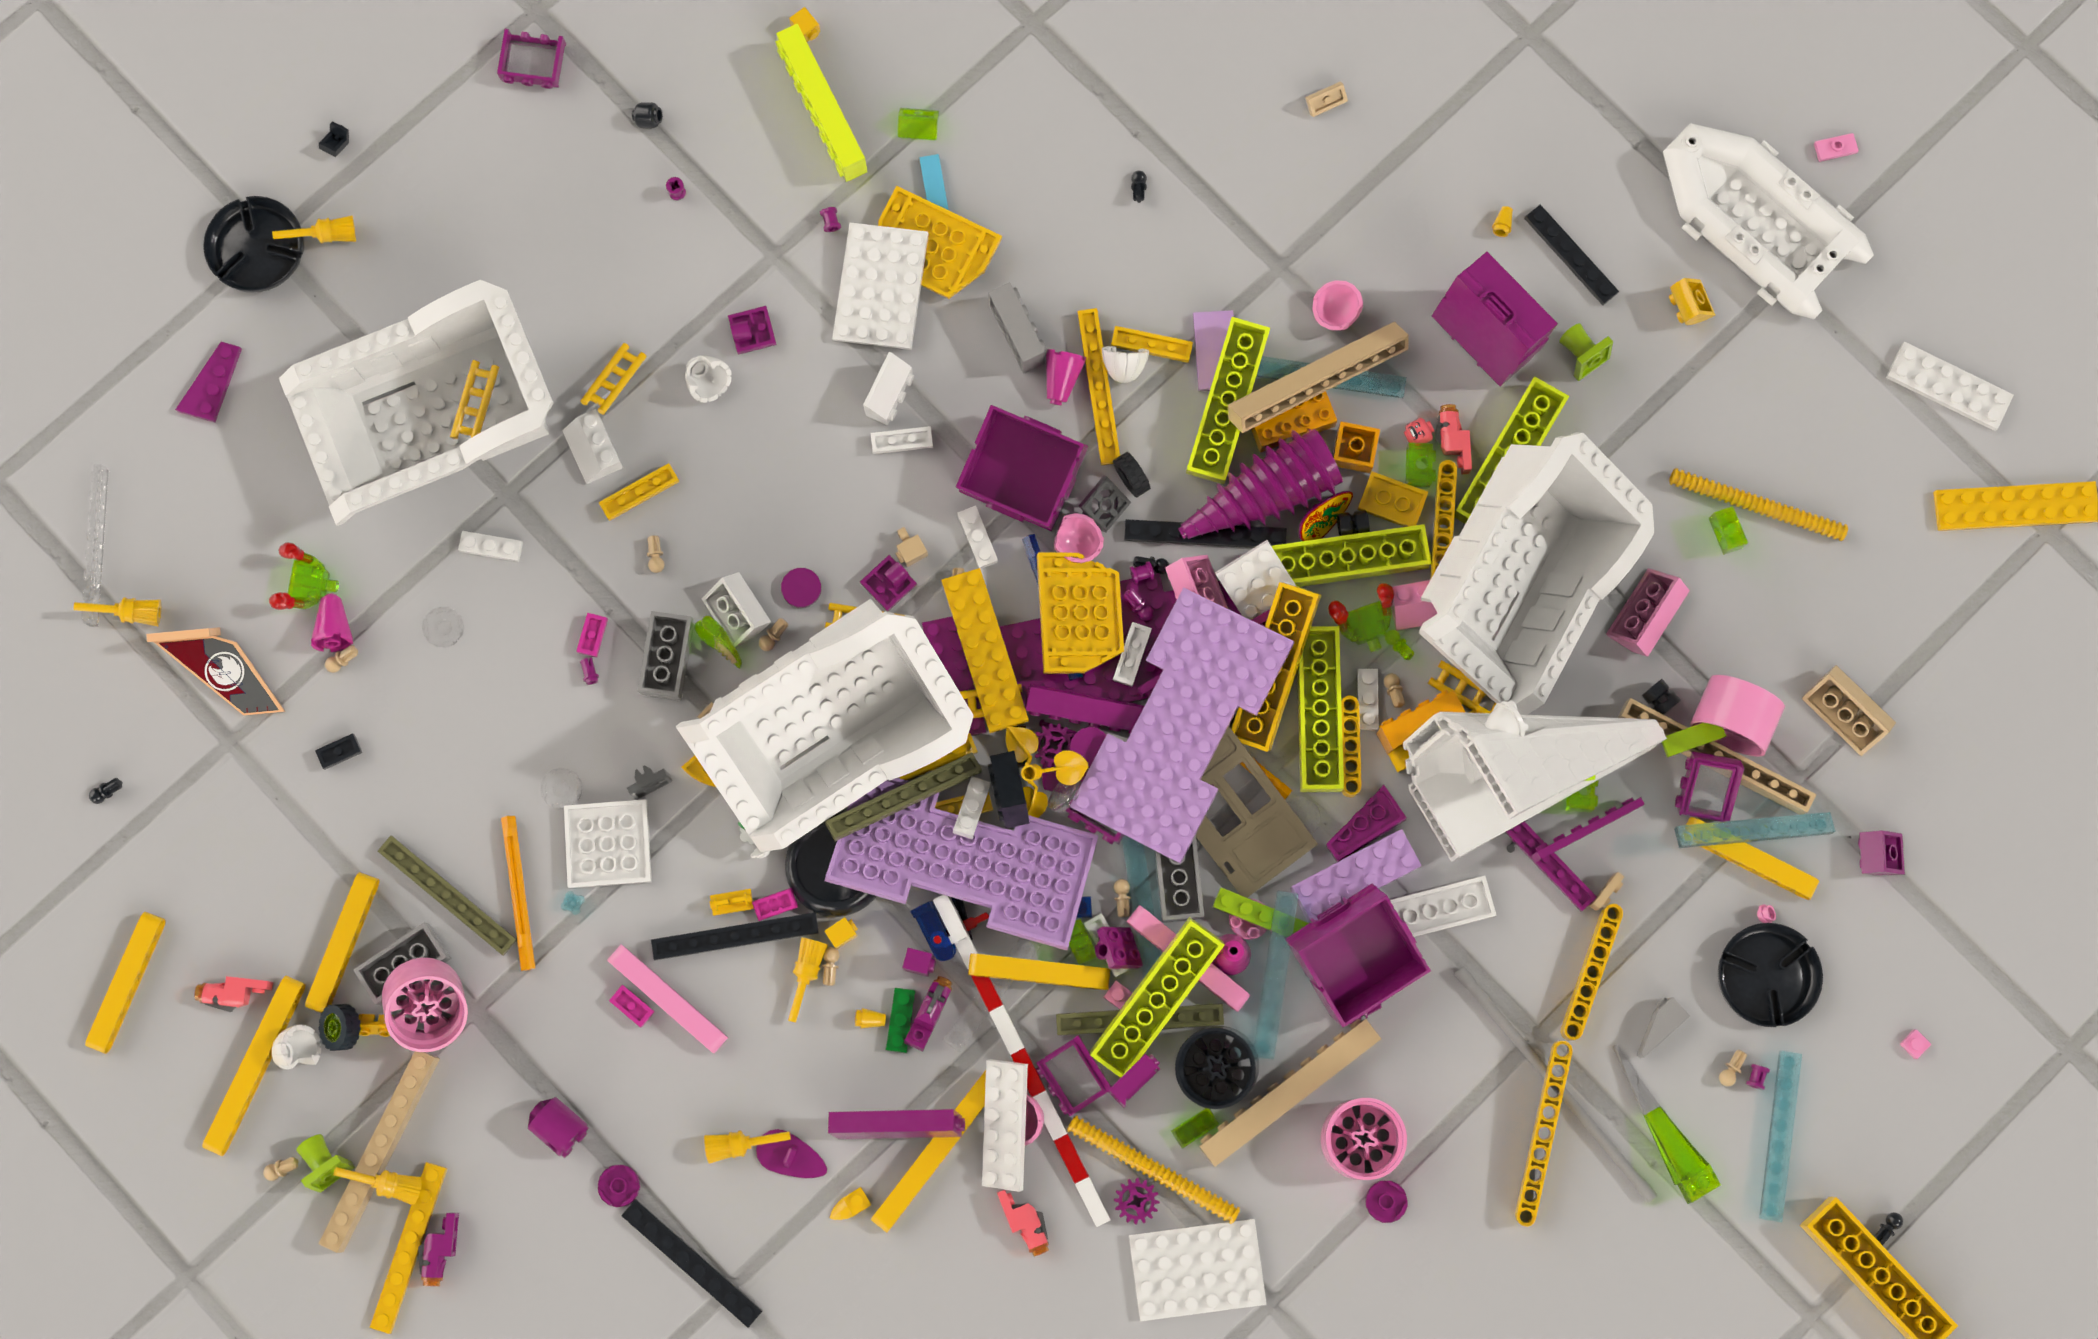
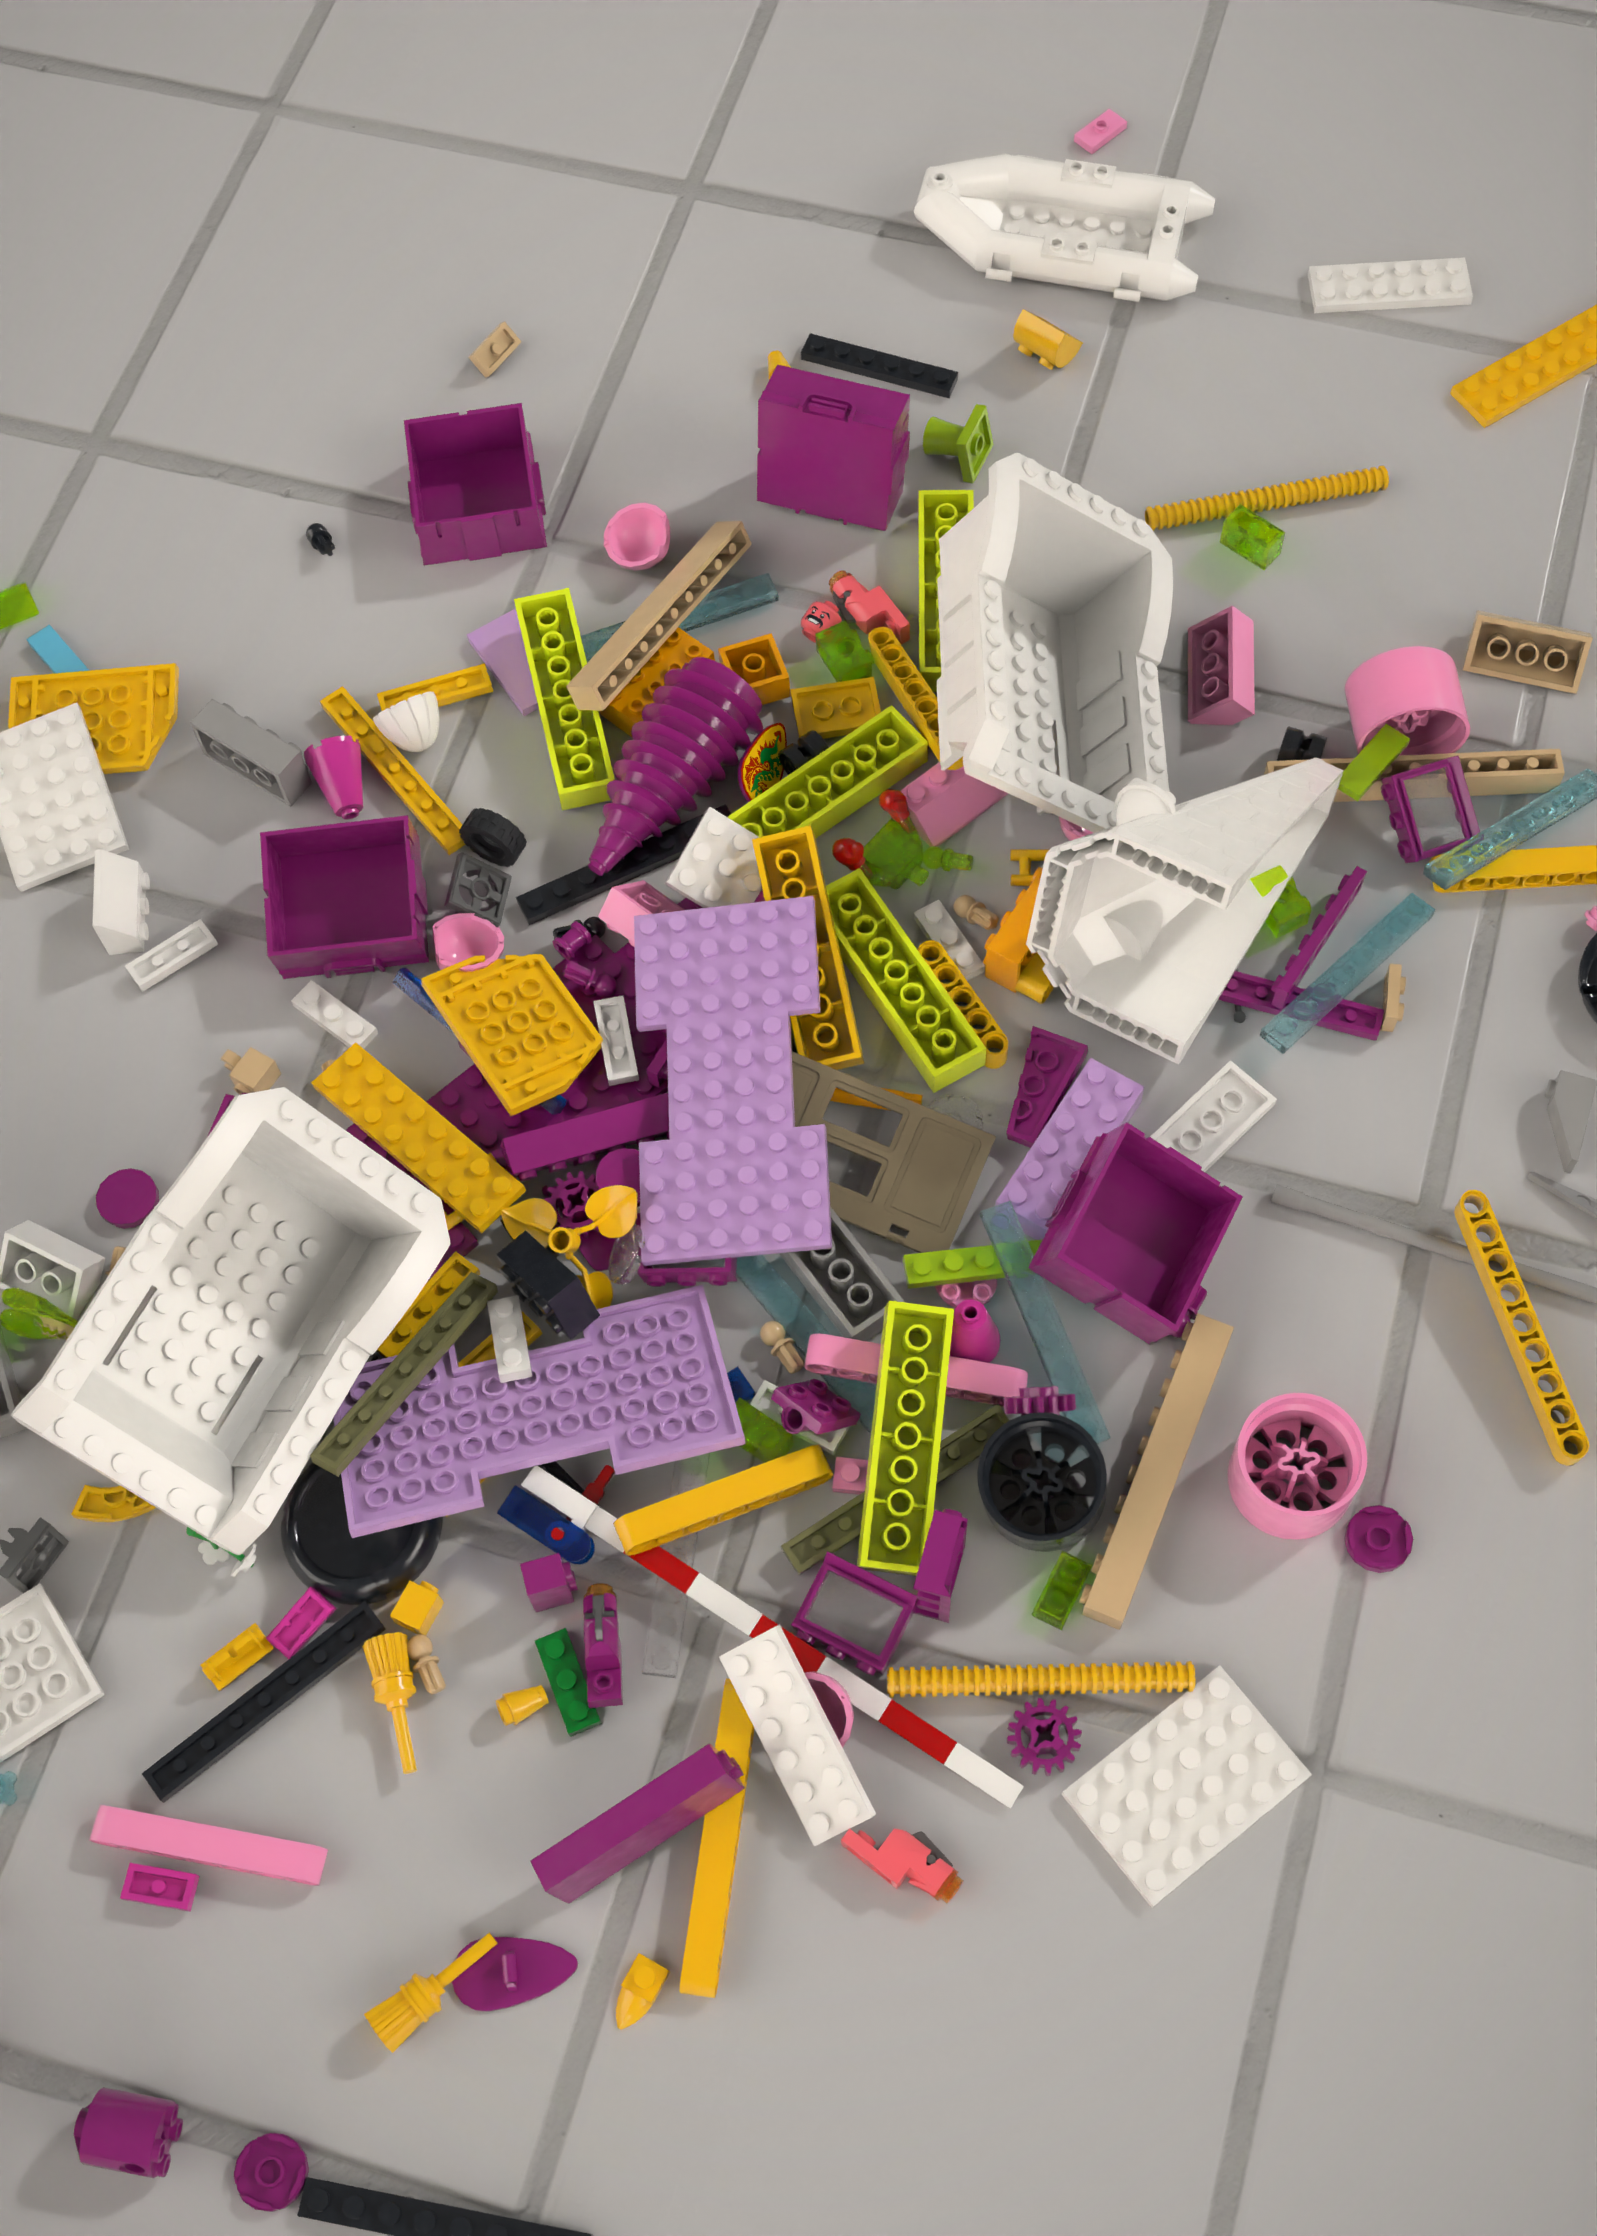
camera: 25 degrees left, 15 degrees down
(1242, 1021) = (1039, 1399): none -> magenta gear
(1255, 205) = (474, 485): none -> magenta piece
(1591, 861) = (1346, 973): none -> clear light blue plate
(1599, 965) = (1440, 1087): yellow beam -> none

